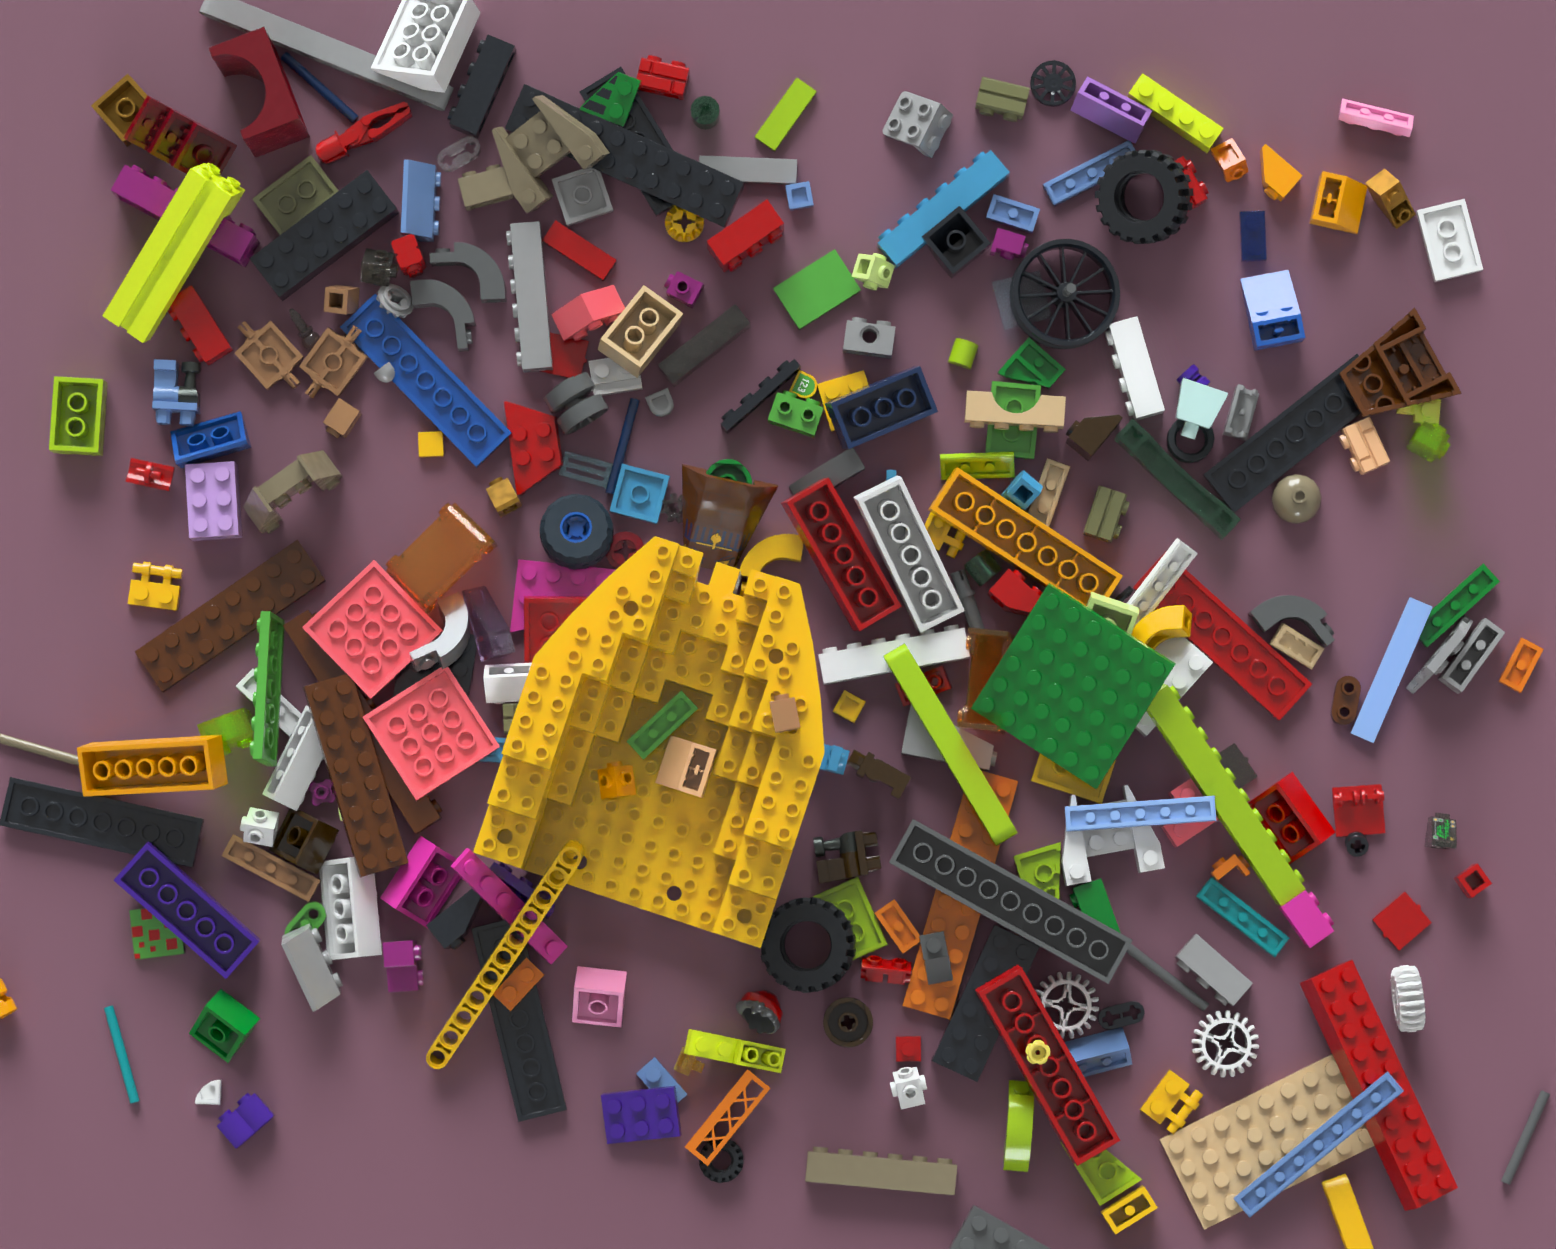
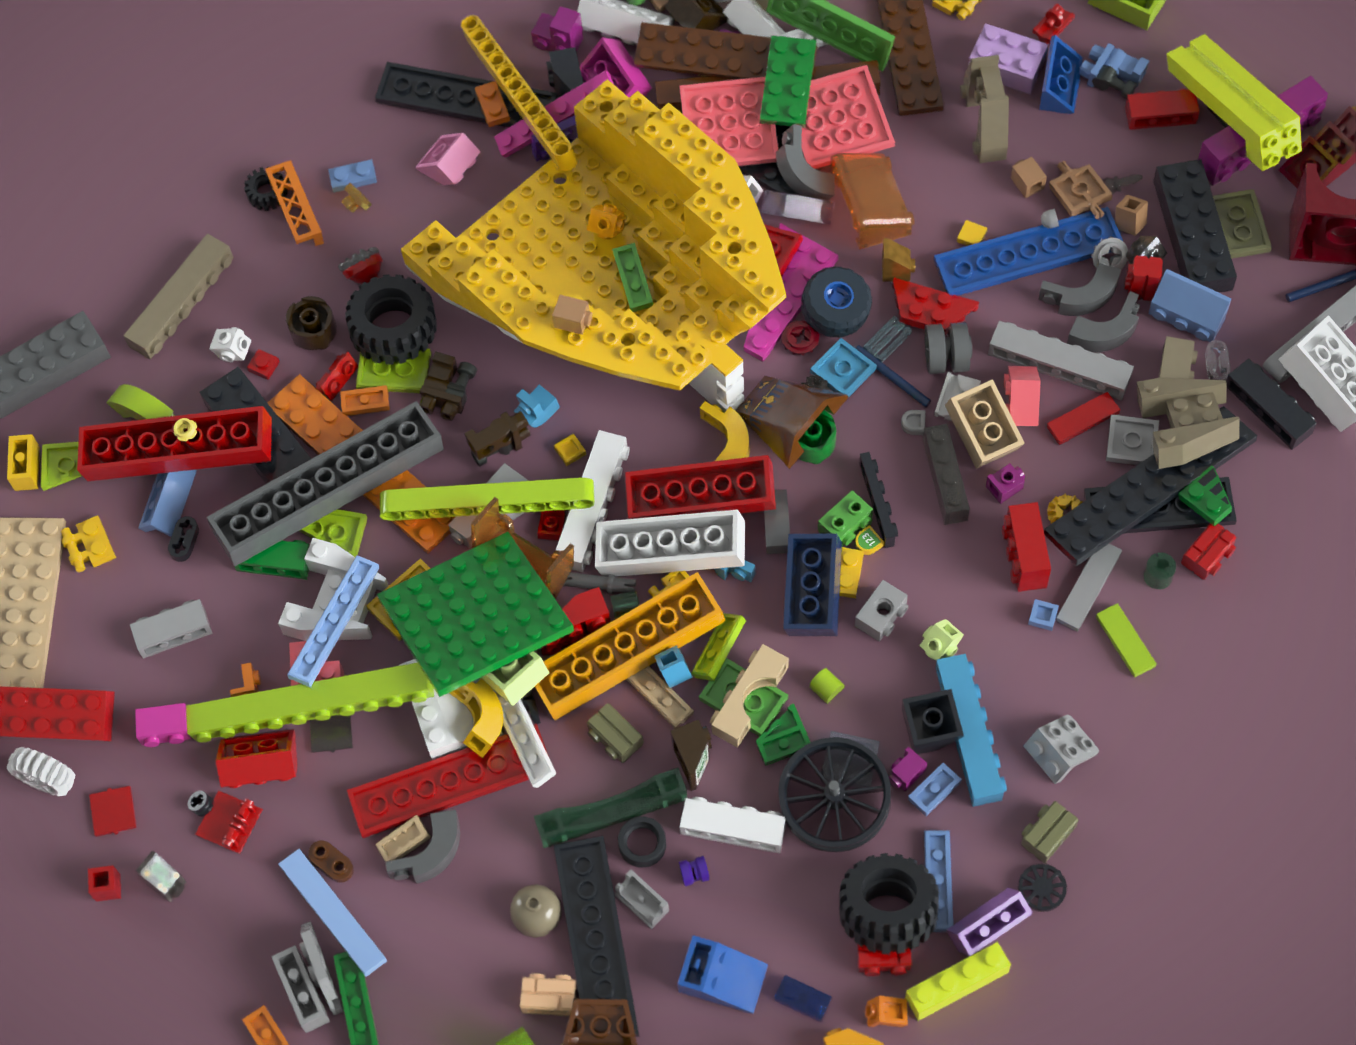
camera: 120 degrees right, 20 degrees down
(269, 355) = (1110, 148): medium nougat plate -> none
(361, 132) = (1272, 292): red arm -> none
(363, 692) = (788, 81): none -> green plate
(567, 356) = (991, 367): red piece -> none
(641, 1114) = (337, 147): dark purple plate -> none
(686, 766) = (585, 276): light nougat slope -> none
(734, 1051) = (344, 234): neon yellow slope -> none
(817, 289) = (950, 590): bright green tile -> none
(936, 957) = (320, 412): dark grey slope -> none
(1068, 983) = (217, 484): white gear -> none
(1167, 977) = (190, 591): dark grey bar -> none
(1198, 406) = (666, 853): light aqua torso -> none
(1220, 1055) = (91, 620): white gear -> none
(1242, 917) = (199, 678): teal tile -> none

